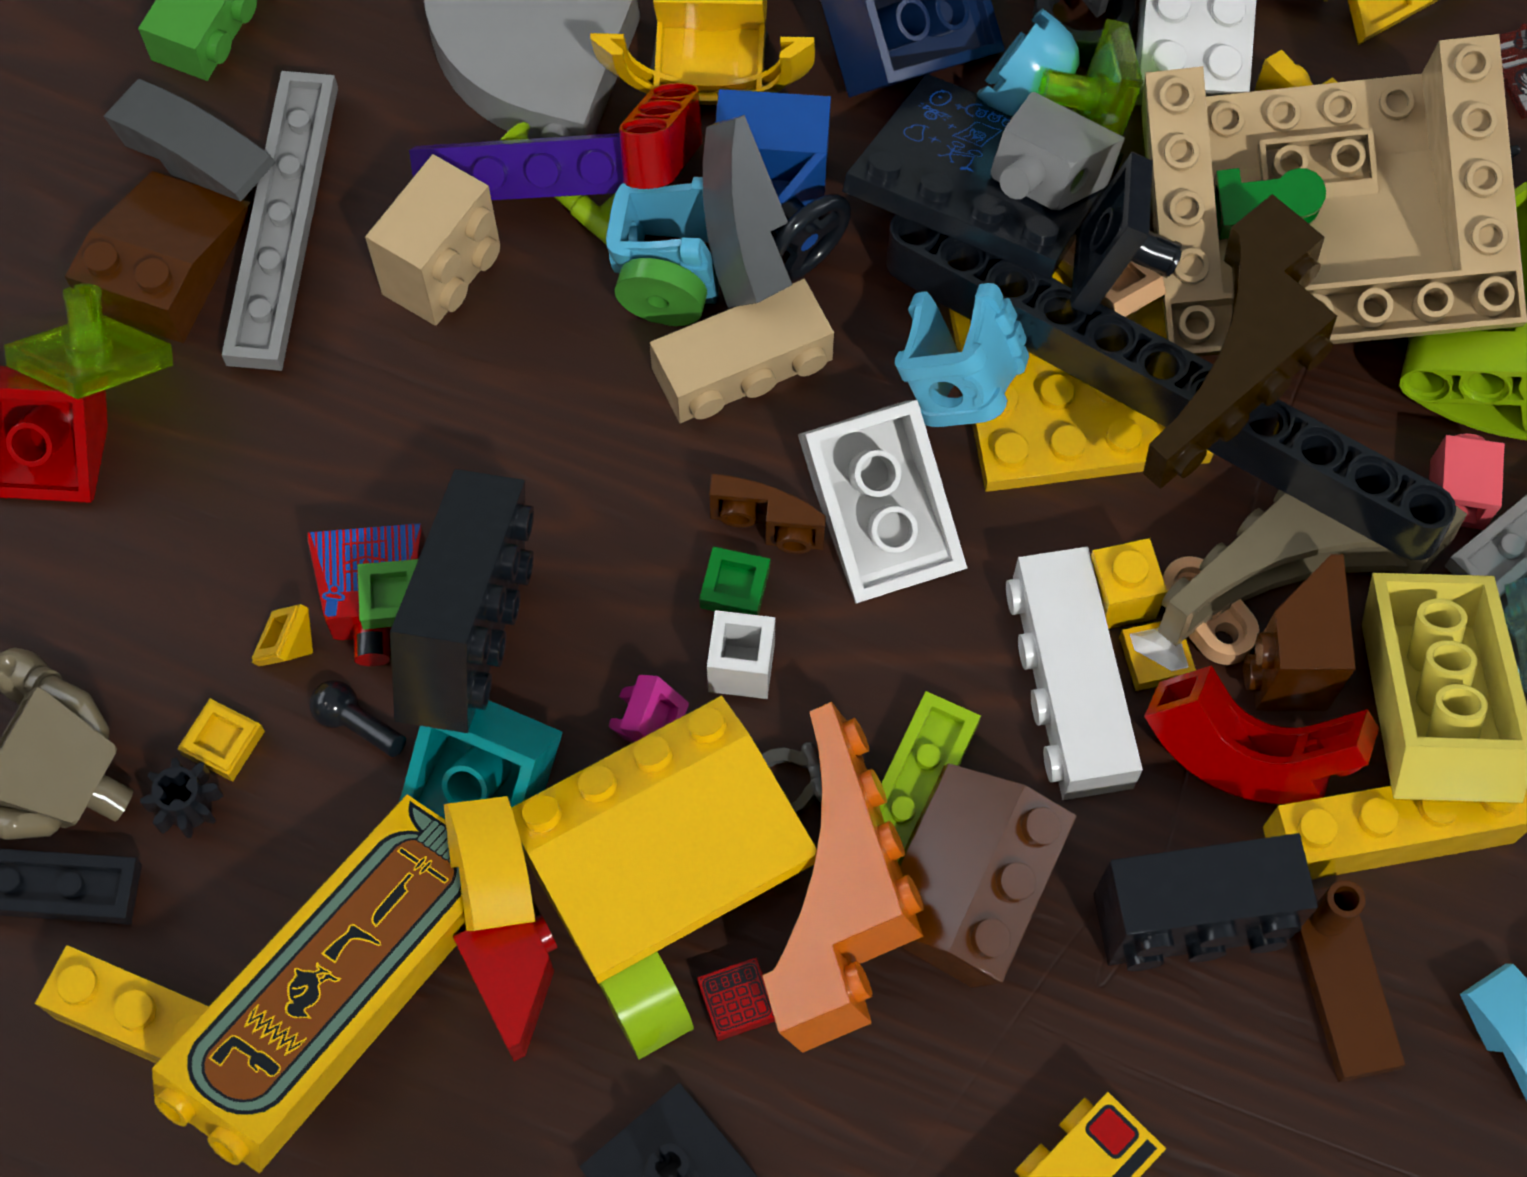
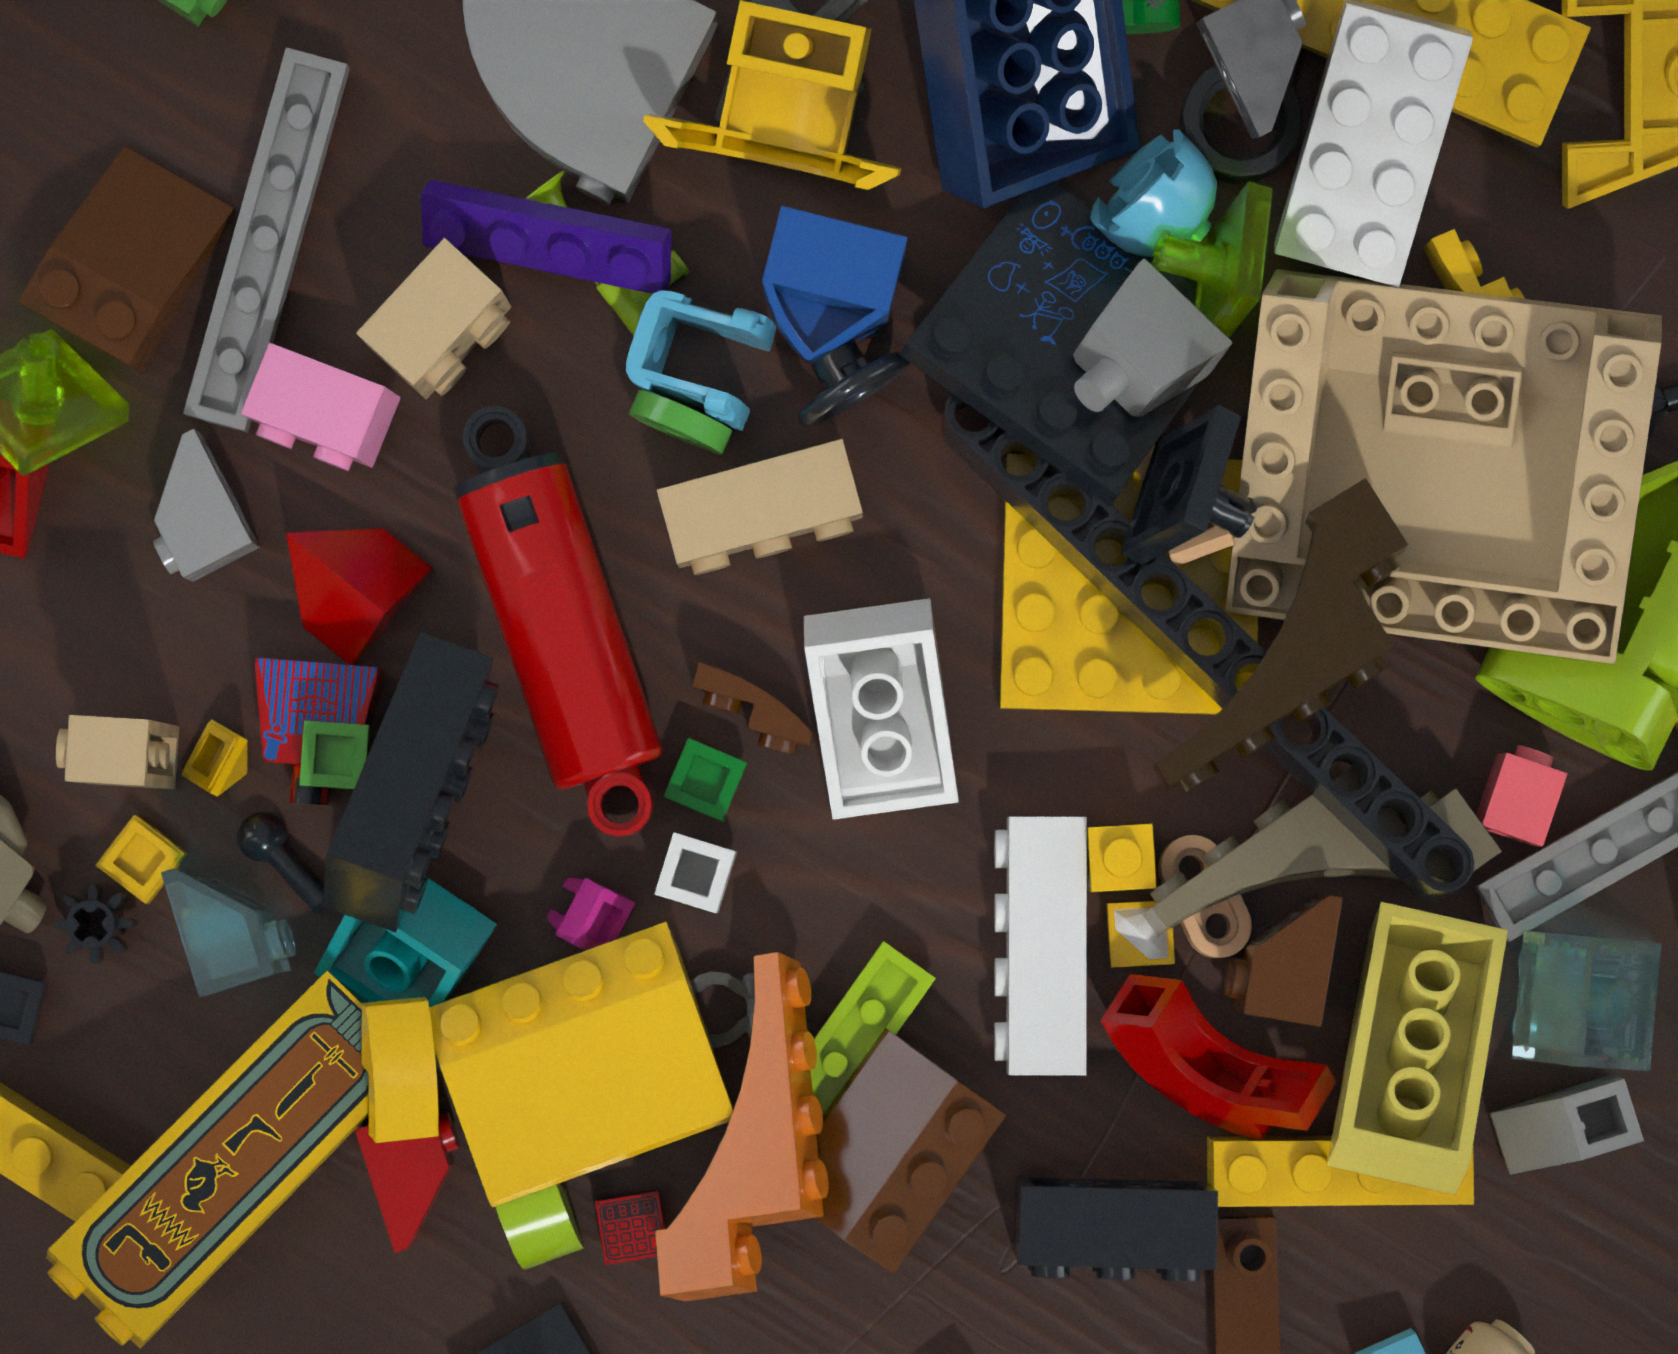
camera: 10 degrees right, 20 degrees up
(187, 618) = (118, 752): none -> tan brick
(188, 140) = (170, 128): dark grey slope -> none
(246, 436) = (199, 514): none -> light grey slope
(312, 778) = (226, 933): none -> clear light blue slope
(343, 329) = (320, 406): none -> bright pink brick
(387, 471) = (352, 584): none -> red slope
(580, 465) = (558, 620): none -> red piece
(660, 135) = (710, 231): red beam -> none
(741, 214) = (779, 374): dark grey slope -> none
(983, 369) = (968, 560): medium azure piece -> none
(1298, 189) = (1376, 451): green leg -> none

